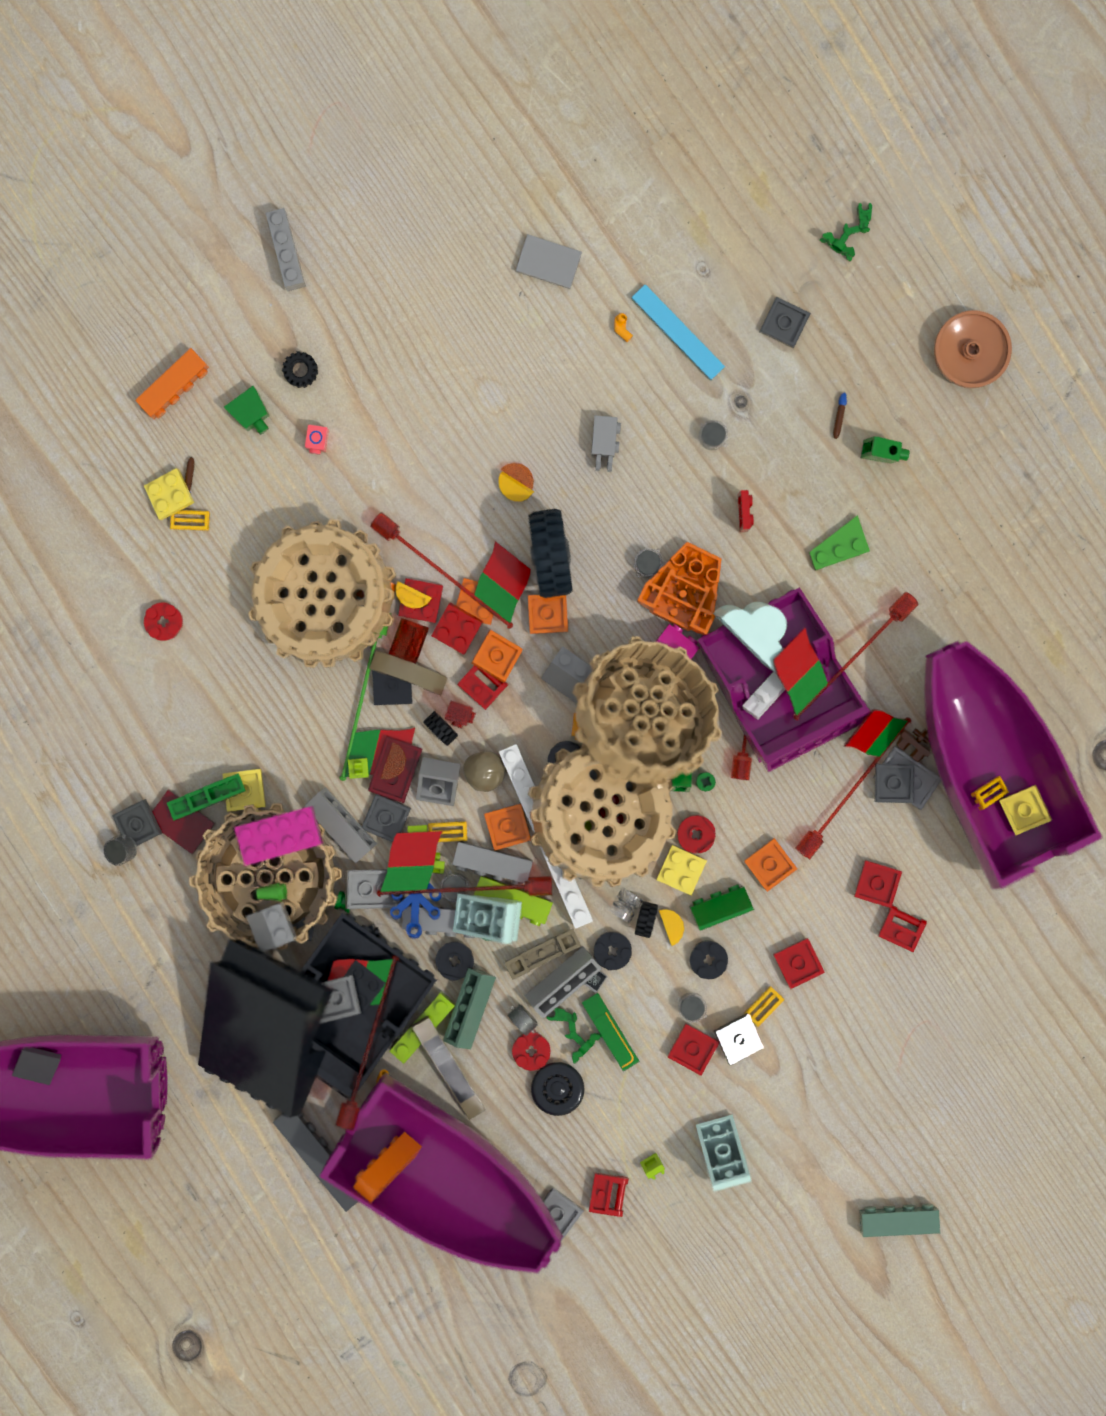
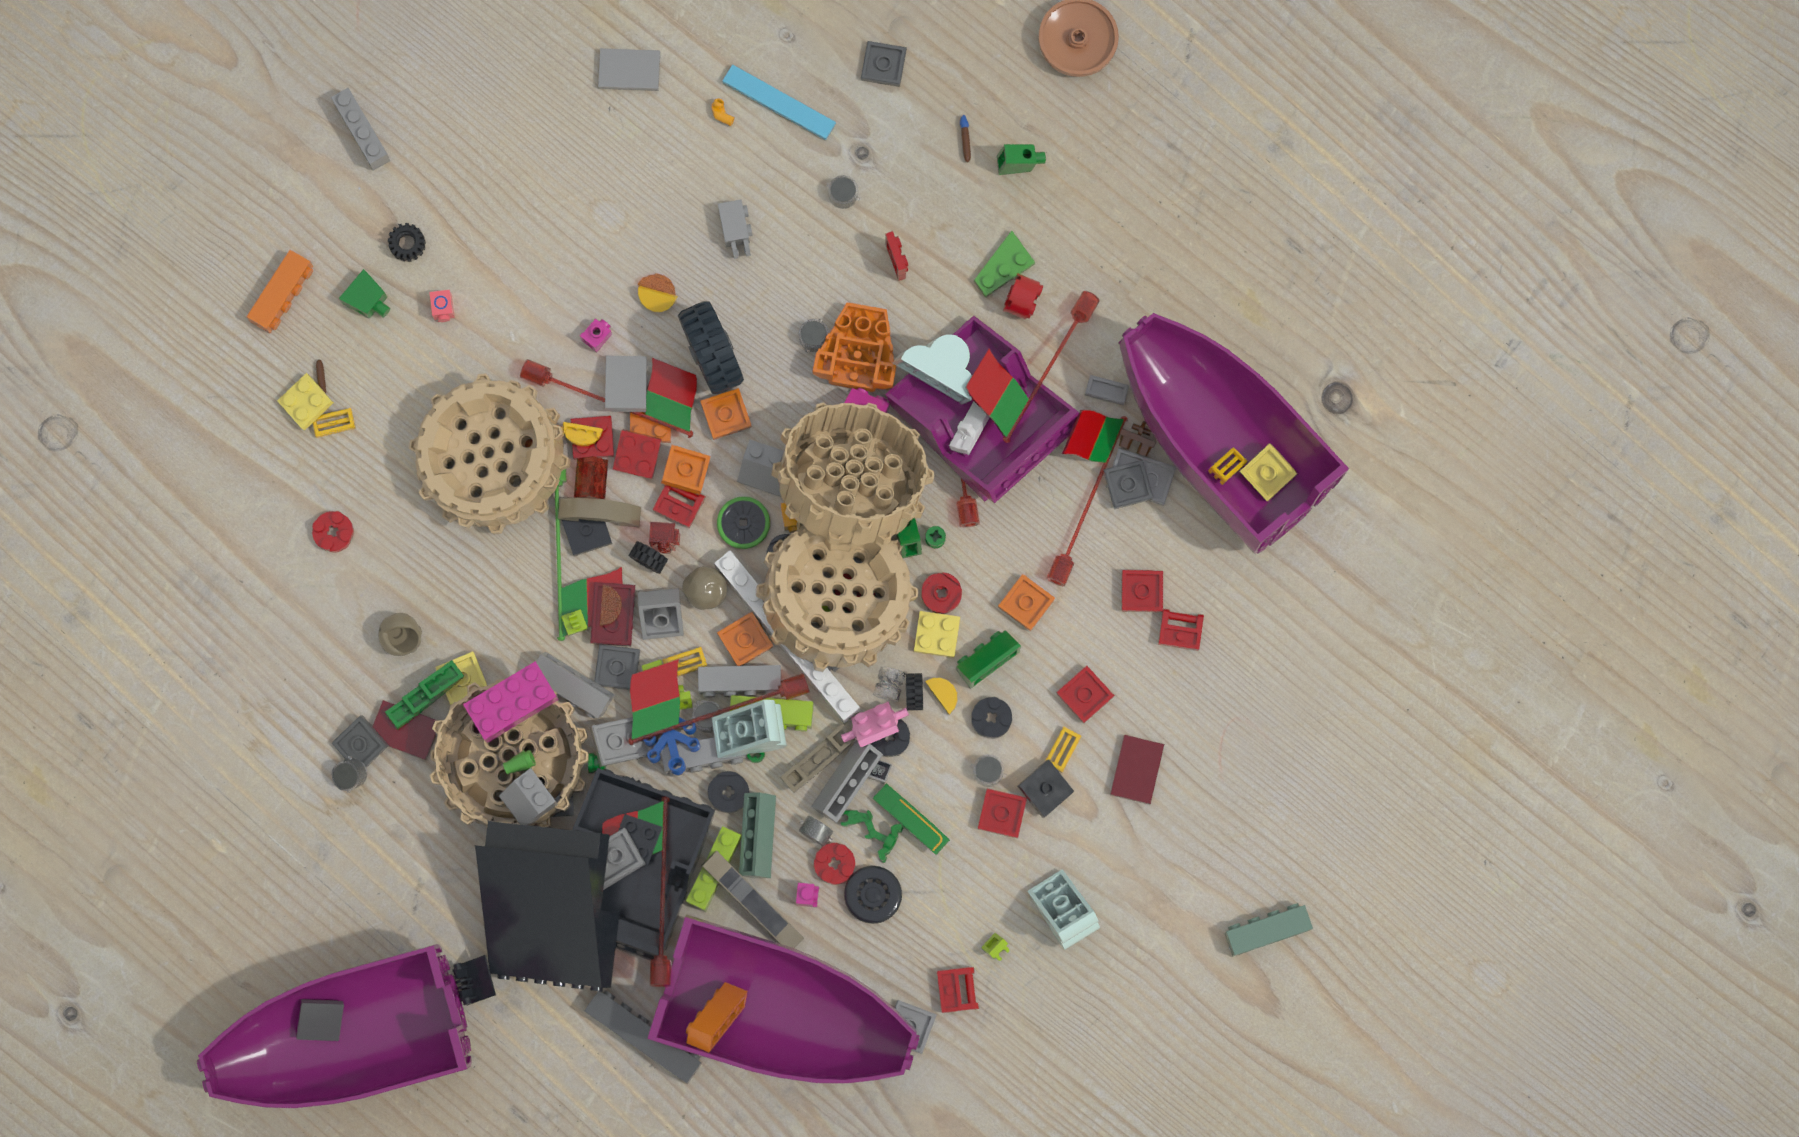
camera: 15 degrees left, 10 degrees down
(183, 1066) = (474, 980): none -> black hinge
(198, 736) = (399, 634): none -> dark tan piece
(448, 513) = (595, 342): none -> dark pink brick
(464, 560) = (625, 384): none -> light grey tile
(499, 1073) = (807, 895): none -> dark pink brick
(532, 731) = (740, 509): none -> black wheel
(602, 940) = (874, 724): none -> bright pink plate
(825, 1043) = (1137, 769): none -> dark red tile
(849, 582) = (1022, 296): none -> red brick
(900, 689) = (1107, 390): none -> light grey tile

